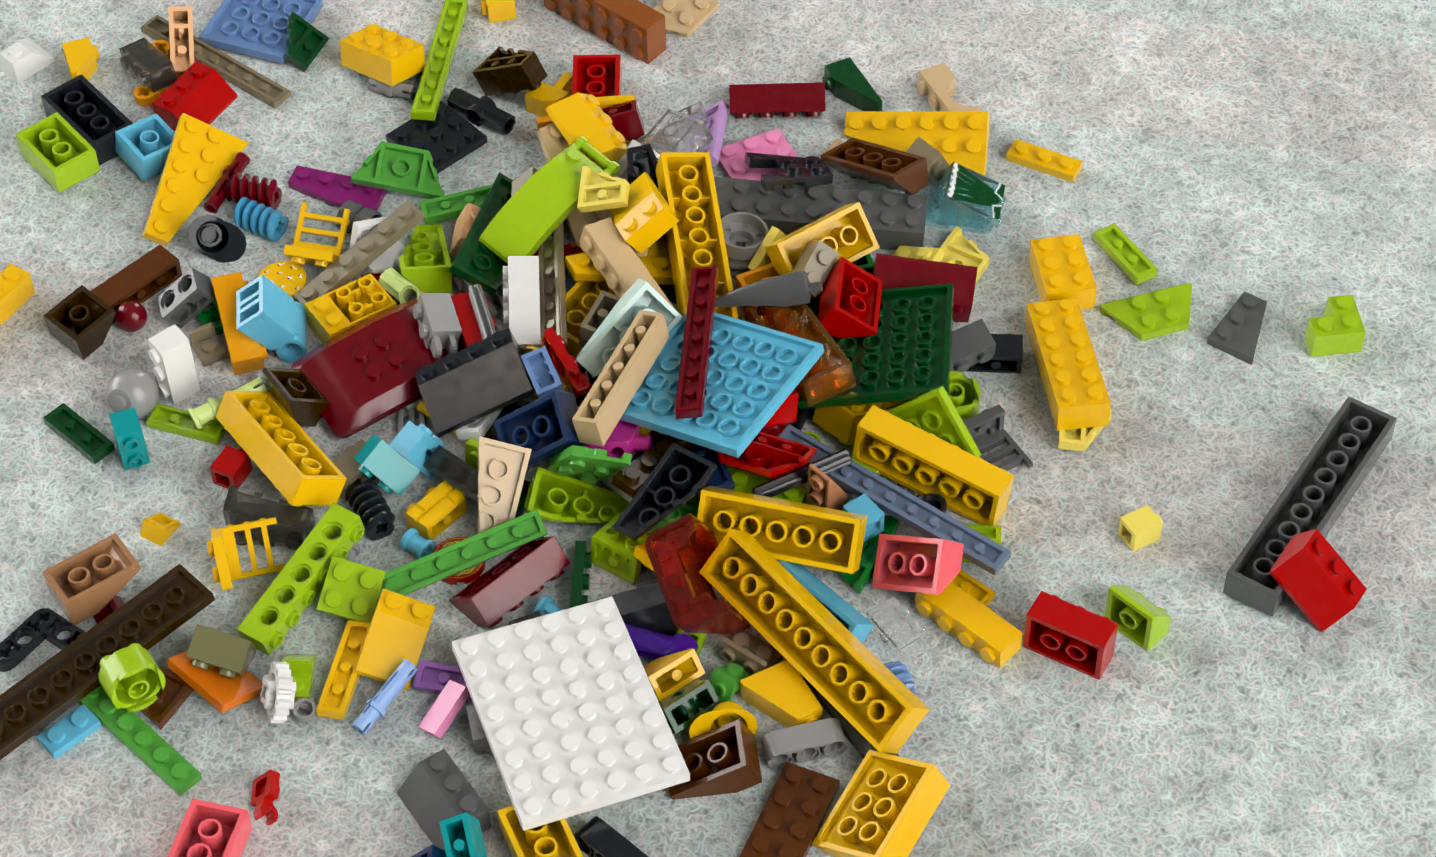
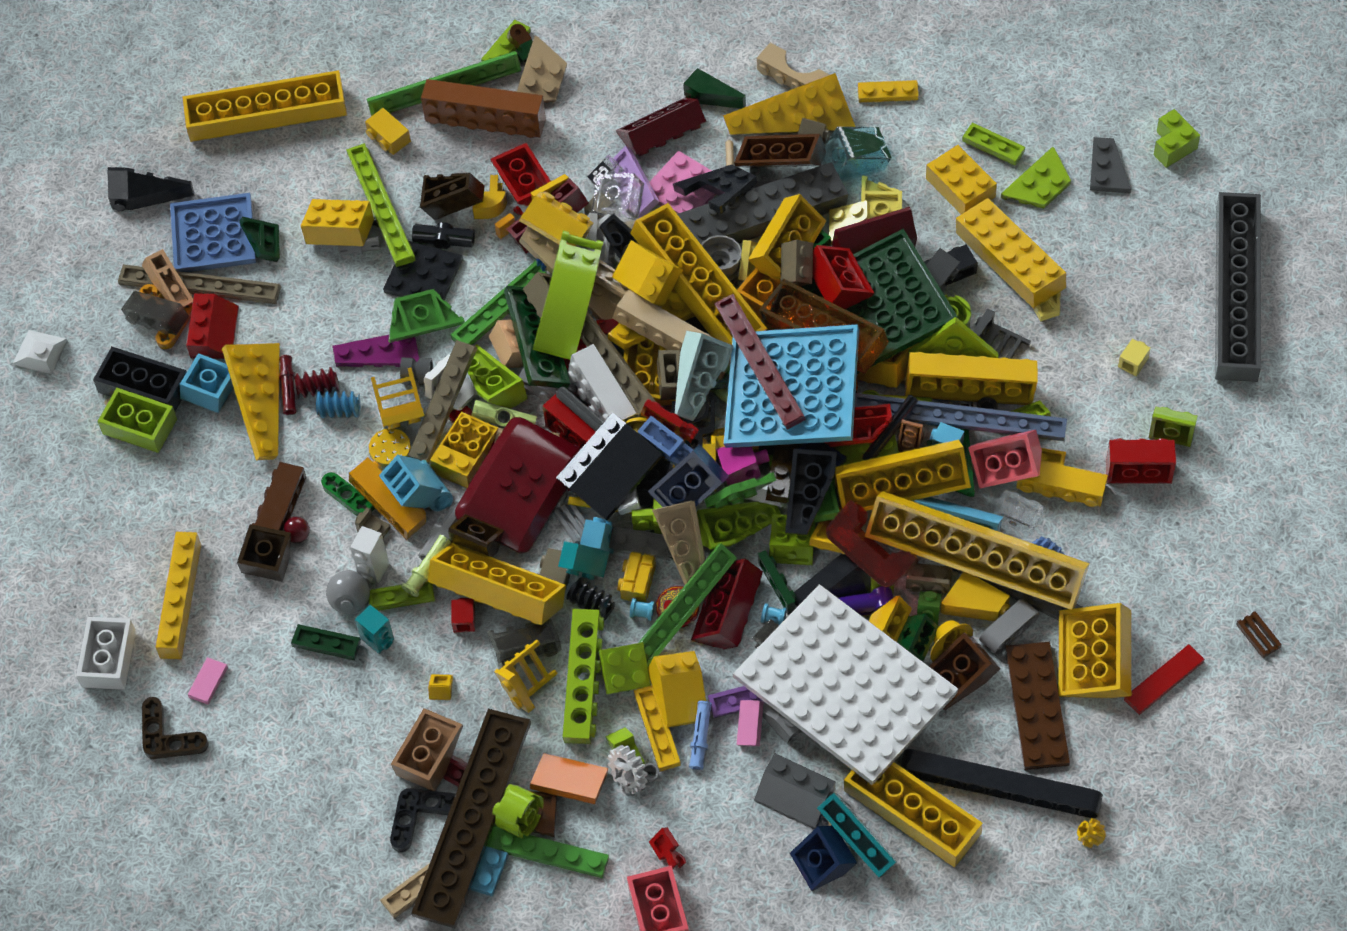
camera: 25 degrees left, 10 degrees up
(81, 57) = (91, 332): yellow slope -> none
(186, 298) = (336, 498): dark grey brick -> none
(217, 238) = (318, 436): black piece -> none
(221, 651) = (564, 760): olive slope -> none
(437, 322) = (549, 431): light grey hinge -> none
(601, 191) = (611, 271): light yellow wing -> none
(621, 378) = (728, 416): tan brick -> none
(779, 291) = (789, 295): dark grey piece -> none
(1317, 579) = (1279, 342): red slope -> none

